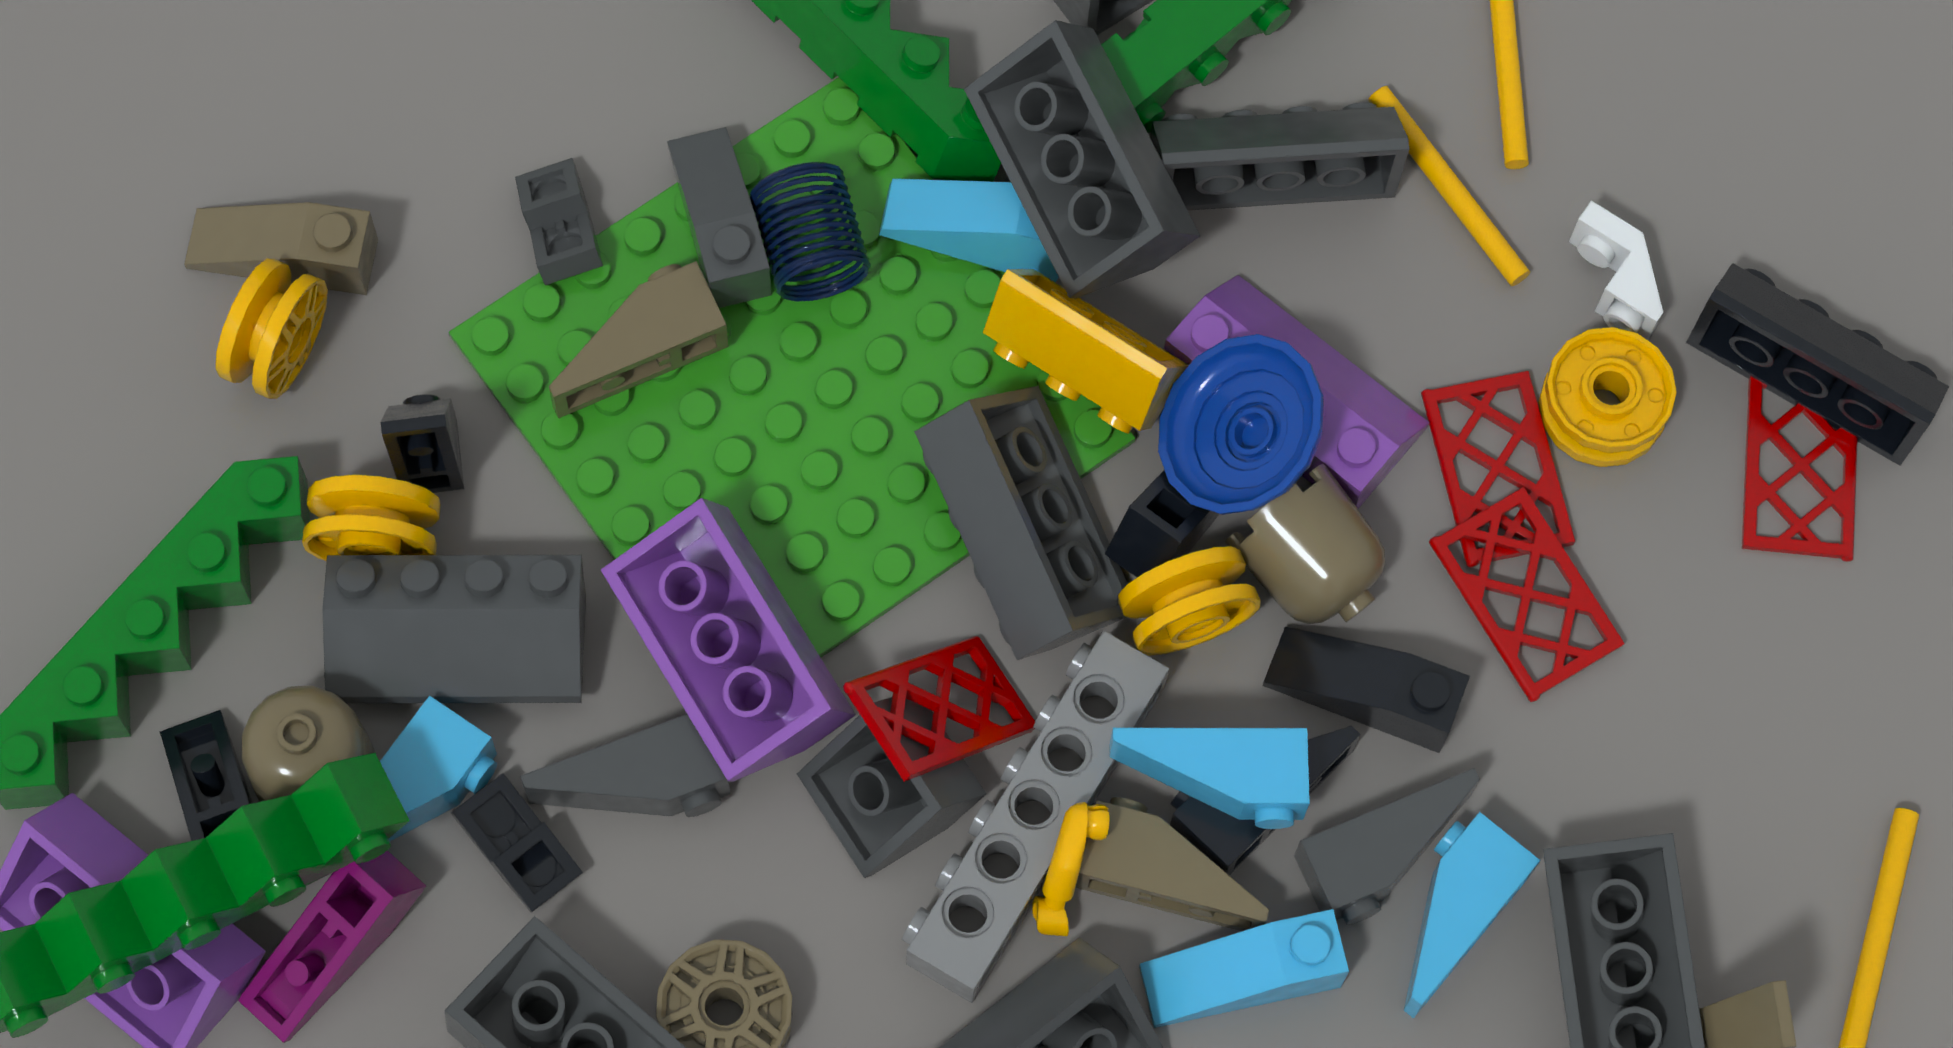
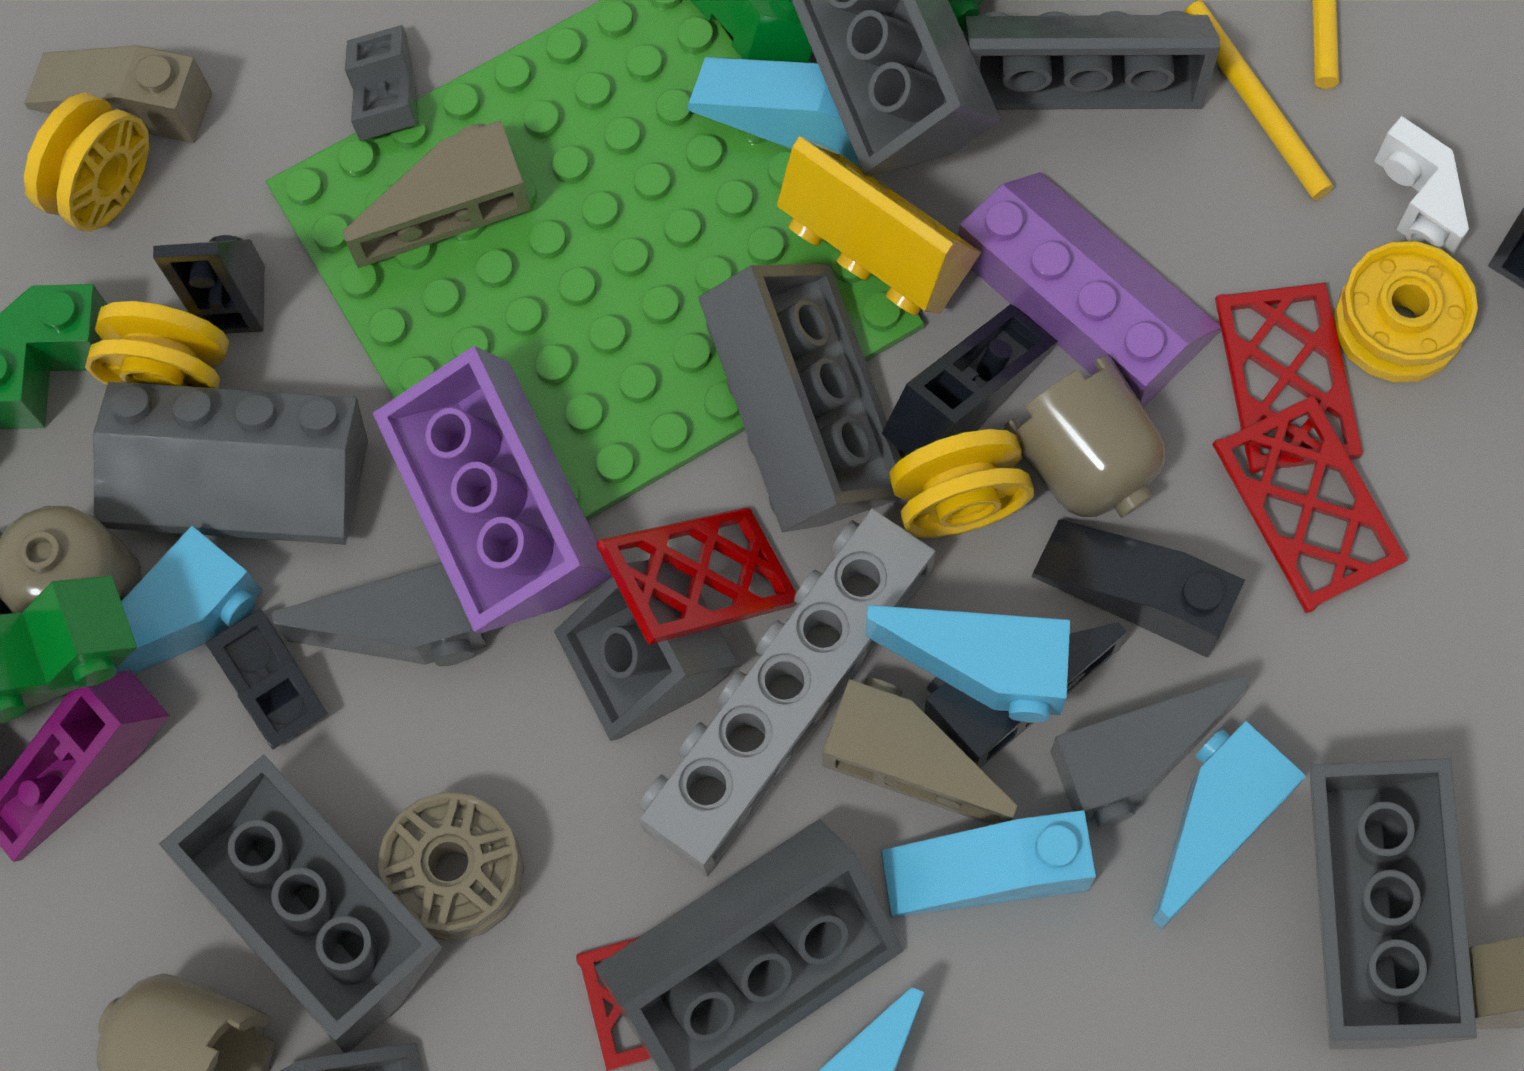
camera: 15 degrees right, 0 degrees up
(720, 217) = (533, 88): dark grey slope -> none
(801, 206) = (613, 101): dark blue piece -> none
(1079, 823) = (802, 766): yellow arm -> none
(1241, 424) = (1028, 309): blue hat -> none

